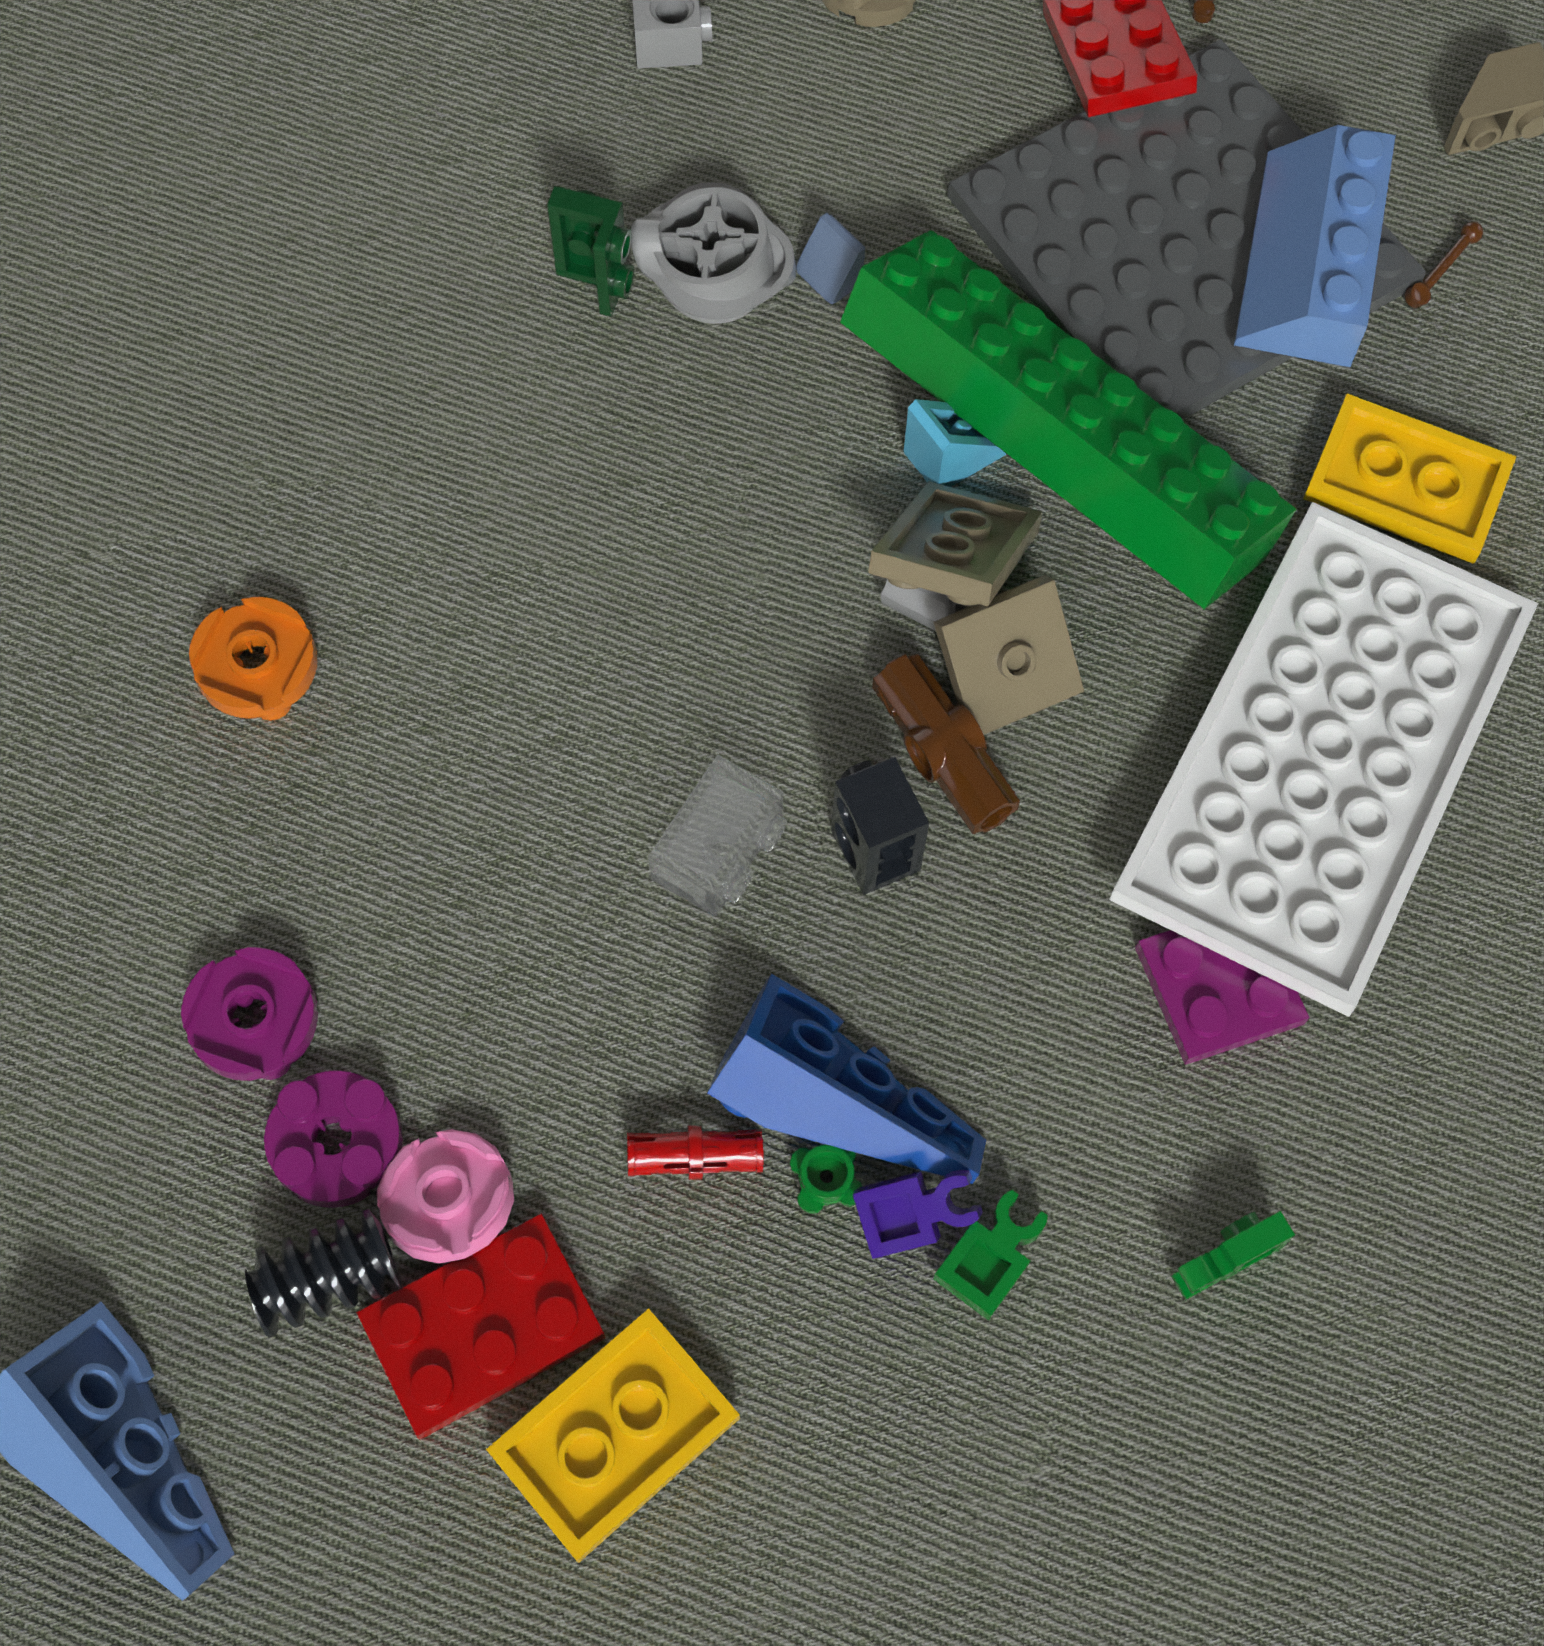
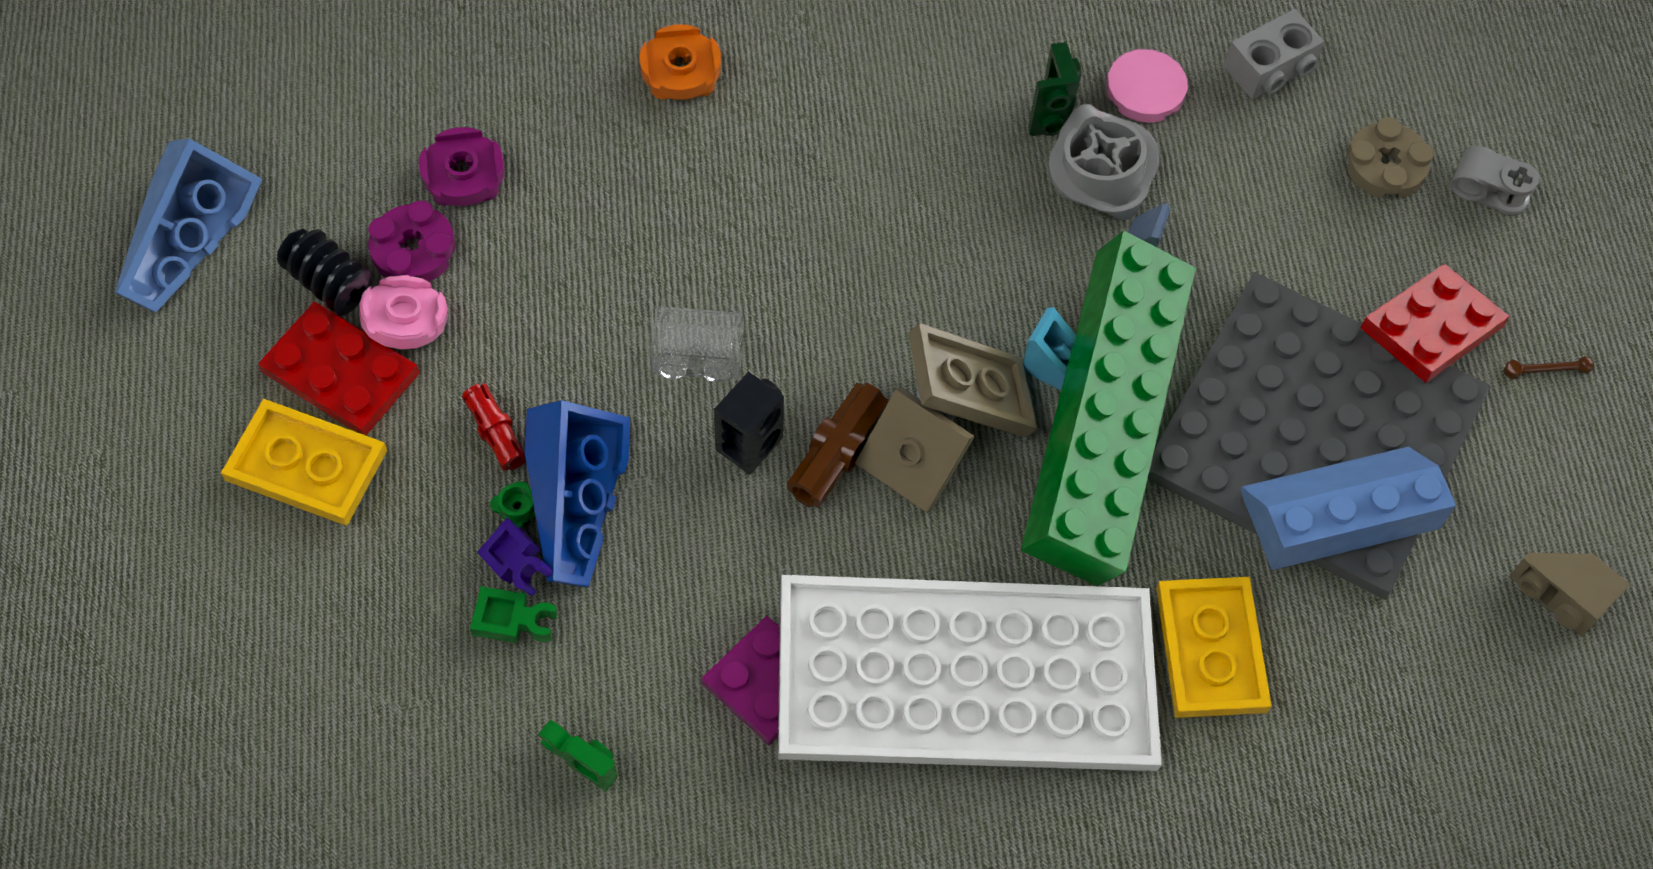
camera: 60 degrees right, 5 degrees down
(621, 155) = (1146, 85): none -> bright pink tile
(1419, 293) = (1373, 599): reddish brown hinge -> none

